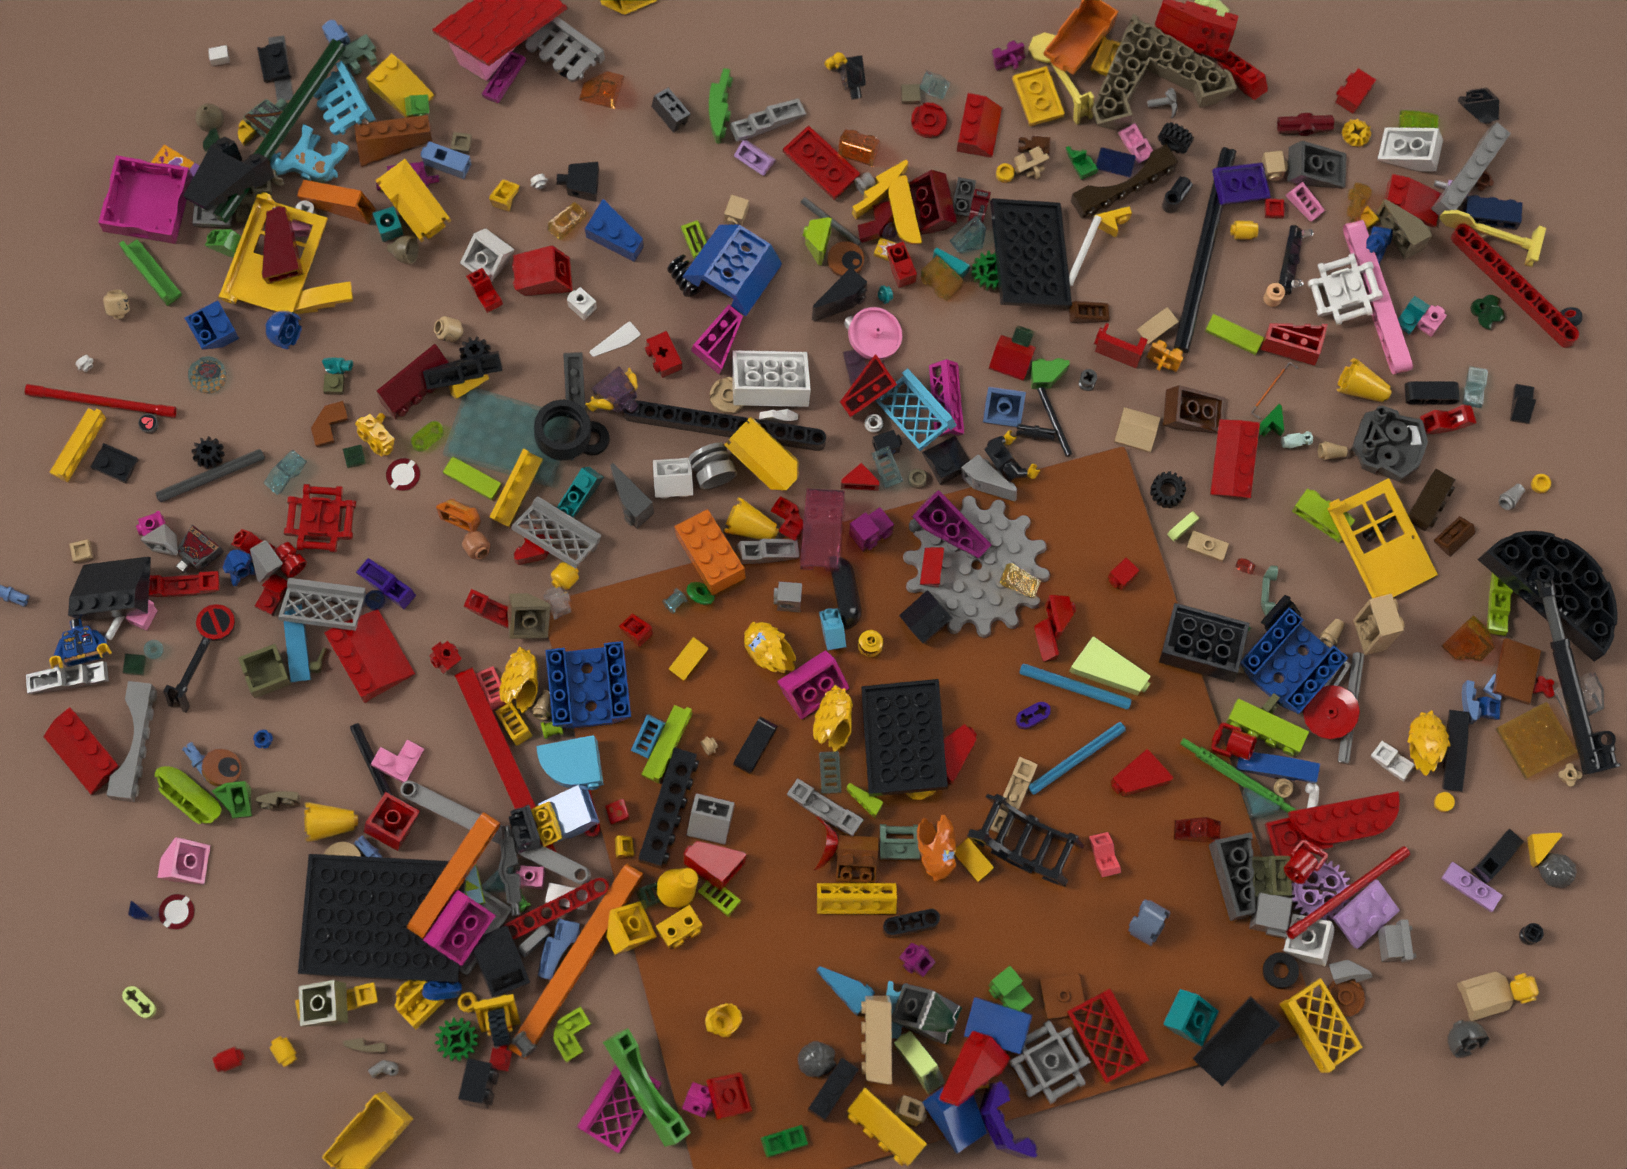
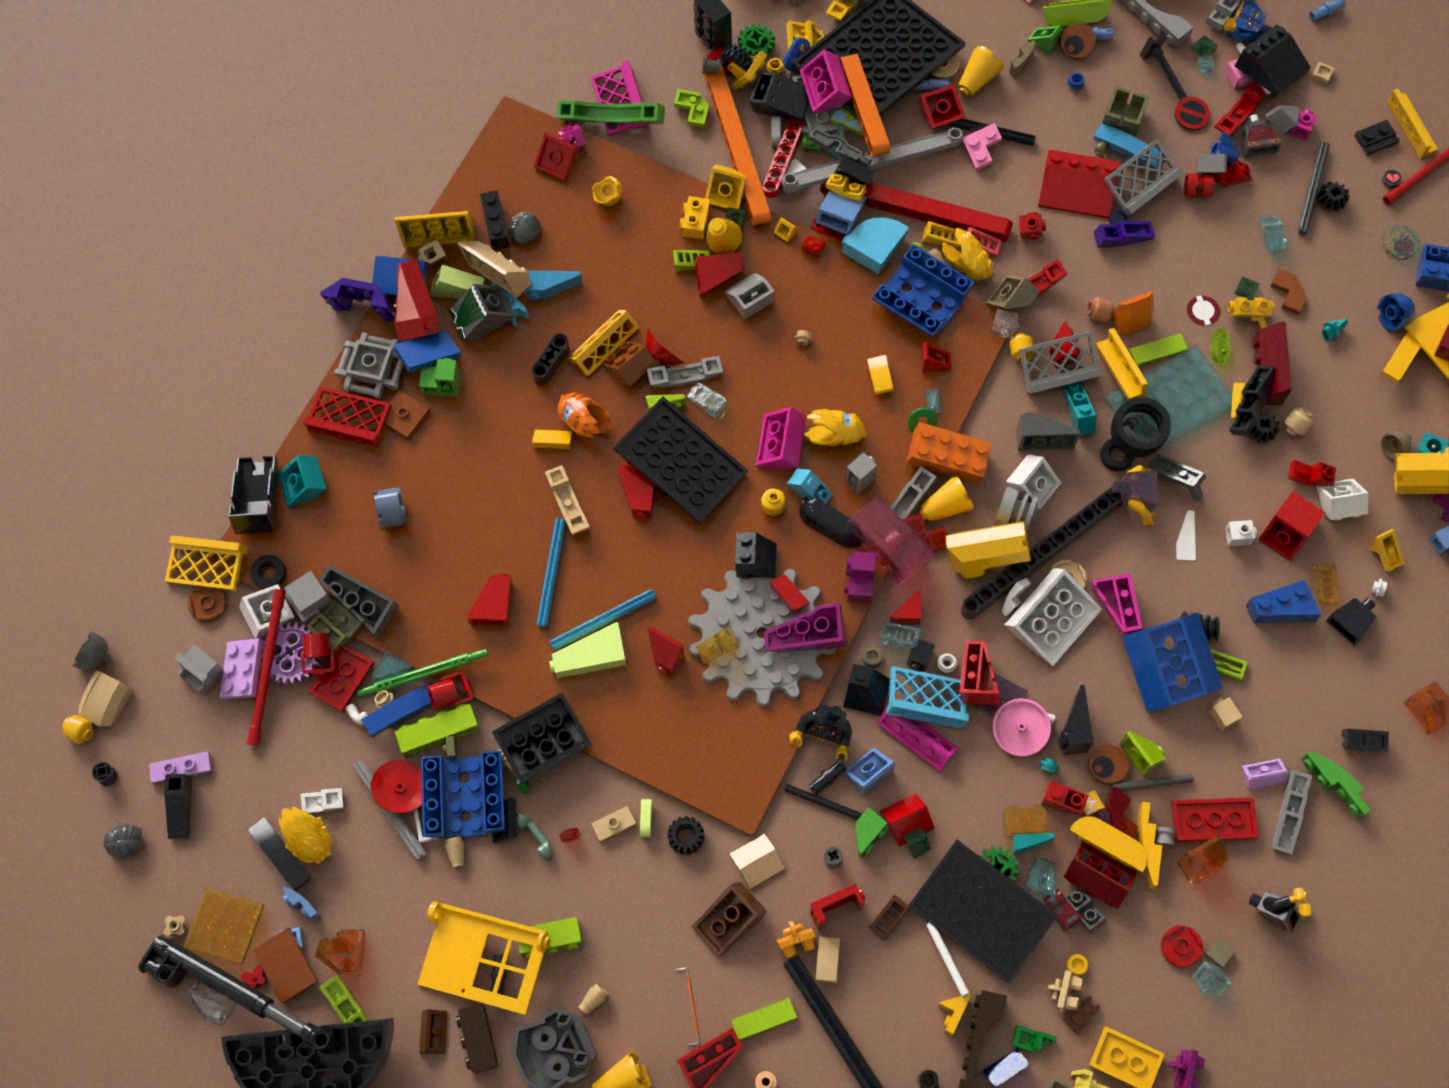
camera: 140 degrees right, 5 degrees down
(272, 595) = (1182, 159): red slope -> none
(320, 518) = (1214, 227): red brick -> none
(333, 384) = (1320, 317): olive plate -> none
(536, 881) = (820, 158): bright pink brick -> none
(565, 934) = (759, 141): medium blue slope -> none
(645, 726) = (853, 317): dark azure slope -> none
(662, 344) = (1149, 564): red brick -> none
(667, 741) = (831, 313): lime fence -> none
(679, 759) = (764, 238): black brick -> none
(755, 745) = (774, 366): black beam -> none
(784, 1141) = (495, 170): green slope -> none
(834, 718) = (743, 427): yellow head -> none
(899, 848) = (611, 394): sand green plate -> none
(917, 959) = (522, 339): magenta brick -> none
(979, 126) = (1139, 980): red slope -> none
(985, 478) = (828, 696): light grey slope -> none
(1015, 857) = (525, 463): black fence -> none
(1030, 712) = (607, 569): dark purple beam -> none
(1046, 640) = (644, 622): red slope -> none
(1104, 854) = (465, 528): coral slope -> none
(1123, 574) = (651, 731): red brick -> none
(1197, 829) = (416, 605): clear red slope -> none
(1235, 458) = (658, 907): red slope -> none
(1273, 421) = (662, 975): green slope -> none
(1297, 439) = (628, 979): light aqua arm -> none
(1347, 819) = (315, 722): red plate -> none
(1348, 970) = (219, 618): light grey slope -> none
(1378, 624) = (420, 875): tan brick -> none
(1444, 802) = (255, 809): yellow tile -> none
(1489, 708) = (283, 916): blue slope -> none
(1540, 845) = (150, 848): yellow slope -> none

